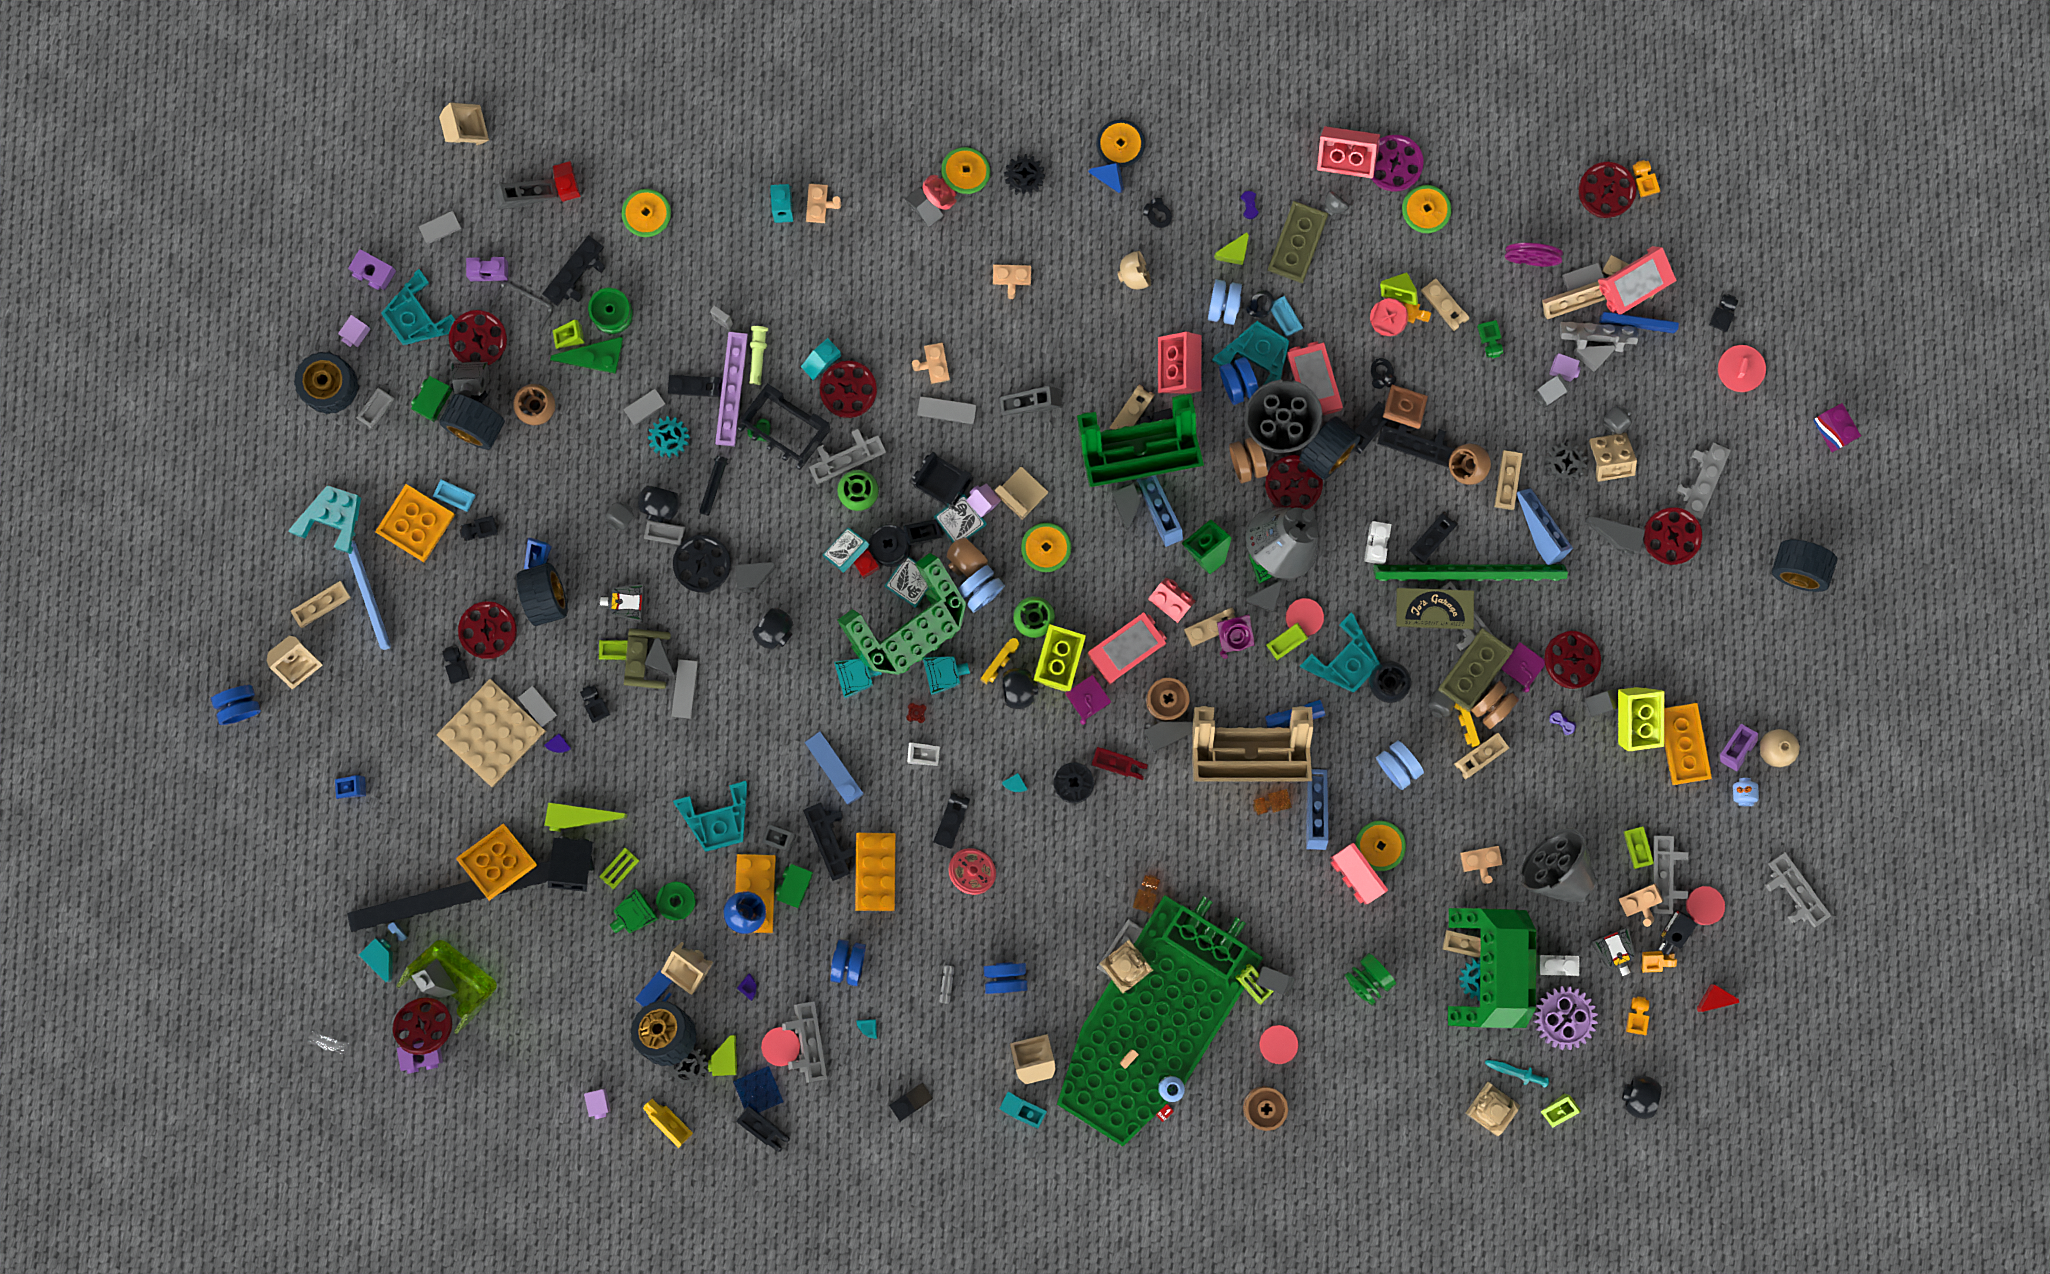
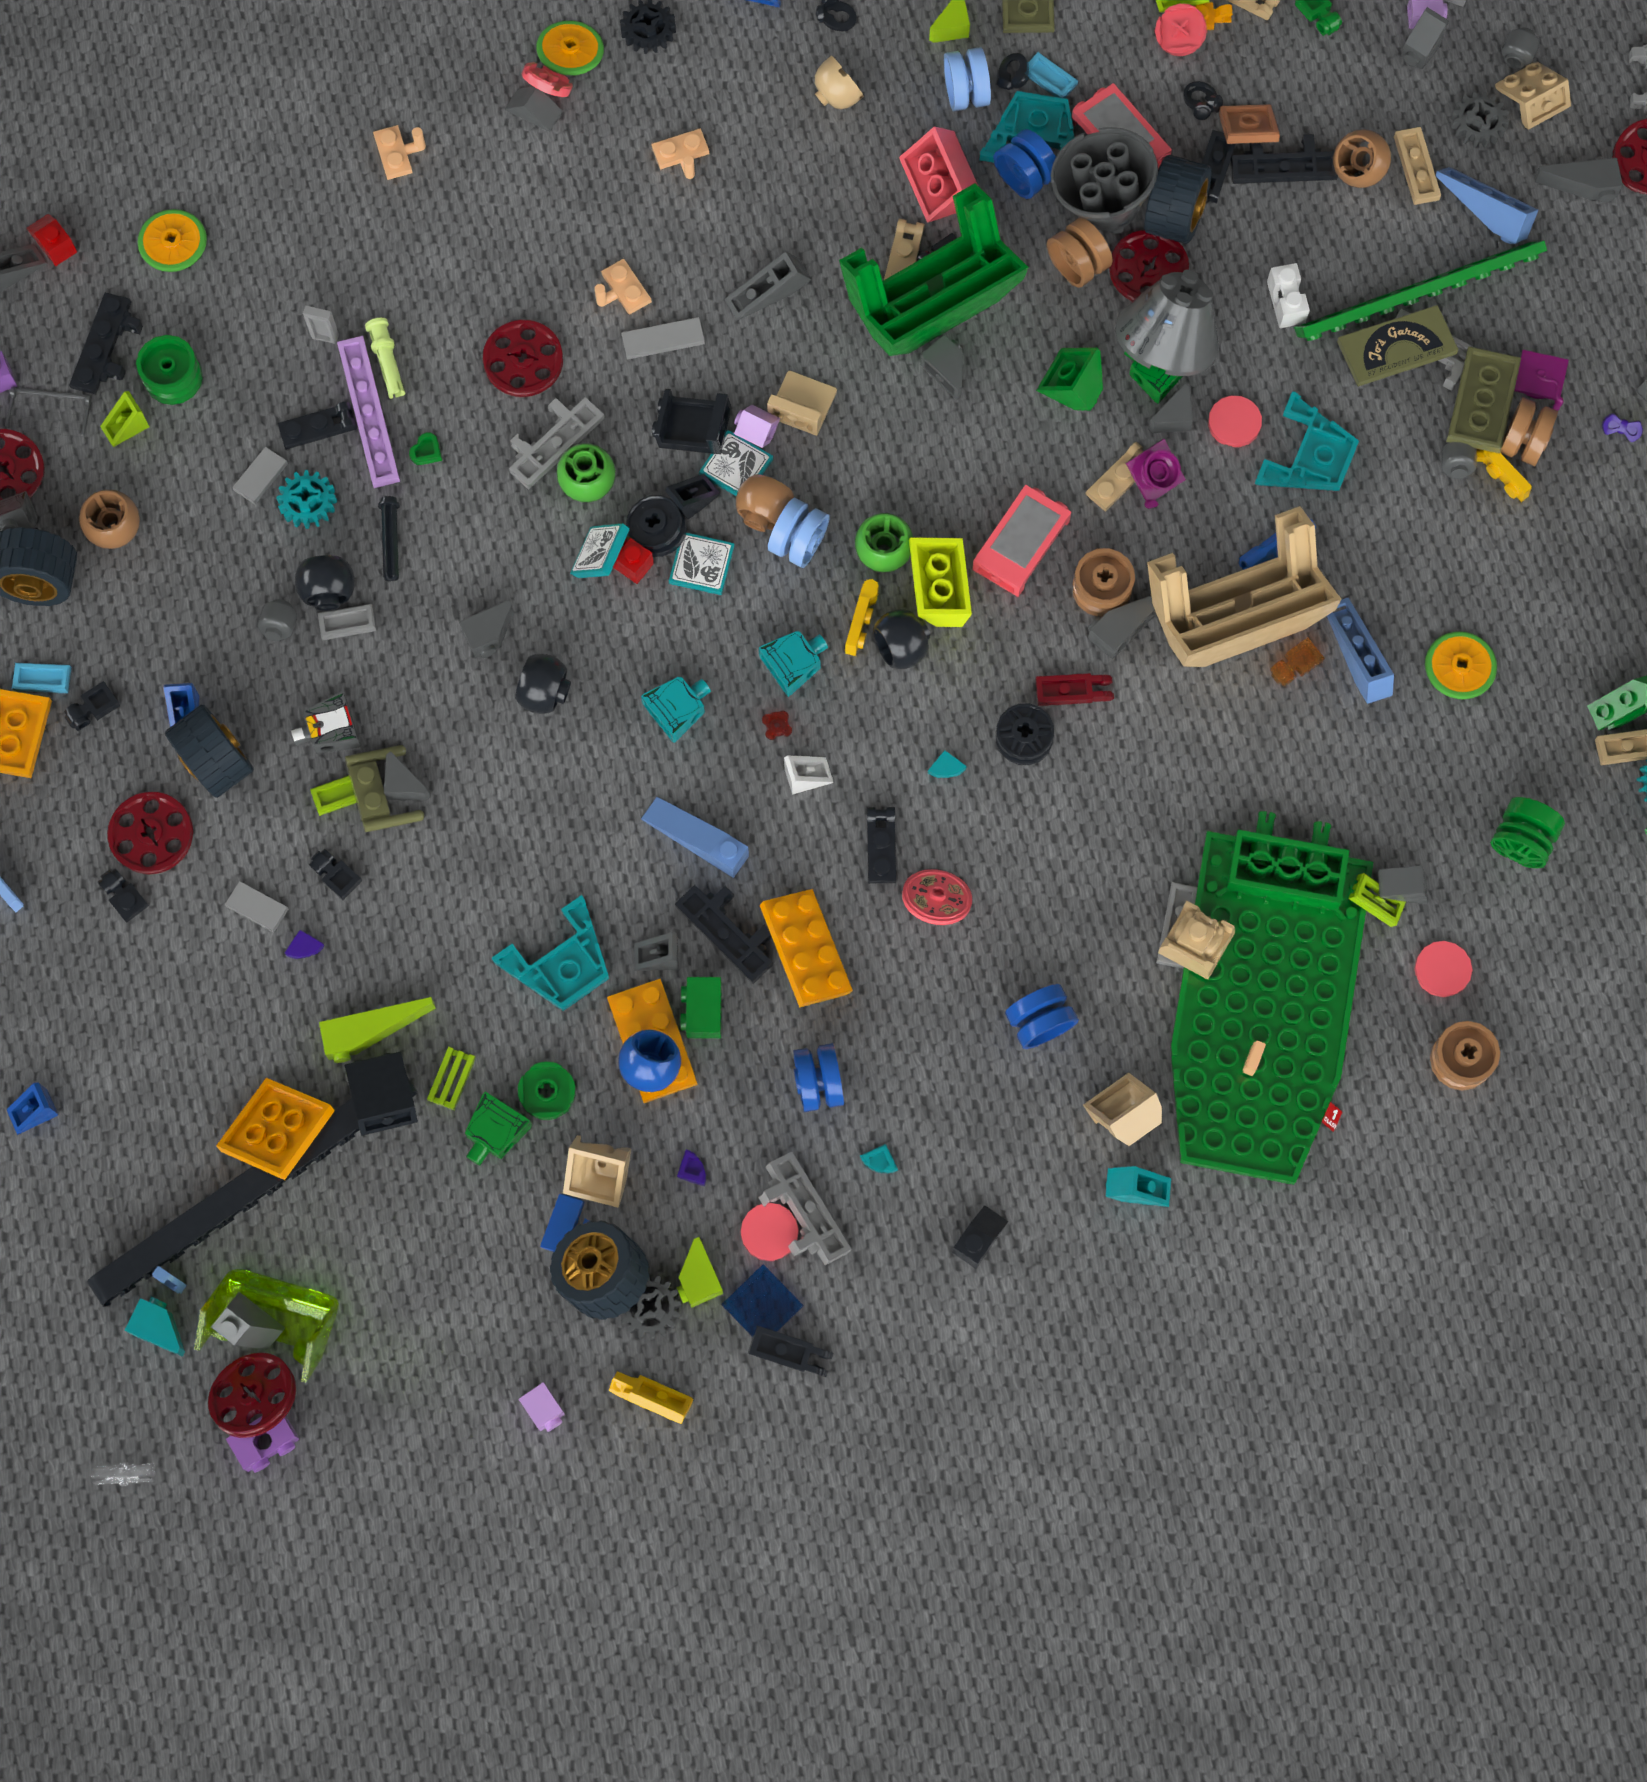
camera: 20 degrees left, 10 degrees down
(491, 733) = (205, 965): tan plate -> none
(599, 356) = (174, 435): green wing -> none
(684, 689) = (451, 810): light grey tile -> none
(697, 555) = (421, 650): black wedge -> none
(777, 397) = (430, 398): black hinge -> none
(781, 202) = (343, 157): teal torso -> none
(821, 359) = (473, 331): teal slope -> none
(917, 636) = (739, 618): green wedge -> none
(946, 986) = (964, 1060): light grey axle -> none
(1039, 558) = (861, 473): light orange wheel -> none
(1088, 698) = (997, 621): magenta hat -> none
(1145, 899) = (1184, 847): clear orange plate -> none
(1161, 510) = (997, 360): medium blue slope -> none
(1172, 599) = (1054, 461): coral bracket -> none
(1175, 1094) = (1325, 1066): light blue head -> none
(1287, 641) = (1226, 457): lime tile -> none
(1358, 874) = (1451, 705): slope -> none
(1391, 697) = (1382, 442): black wheel -> none
(1399, 765) = (1441, 549): light blue wheel -> none
(1433, 537) = (1354, 267): black plate -> none
(1481, 860) = (1600, 634): light nougat plate -> none
(1482, 755) = (1539, 504): tan plate -> none
(1568, 666) = (1602, 338): dark red wedge -> none

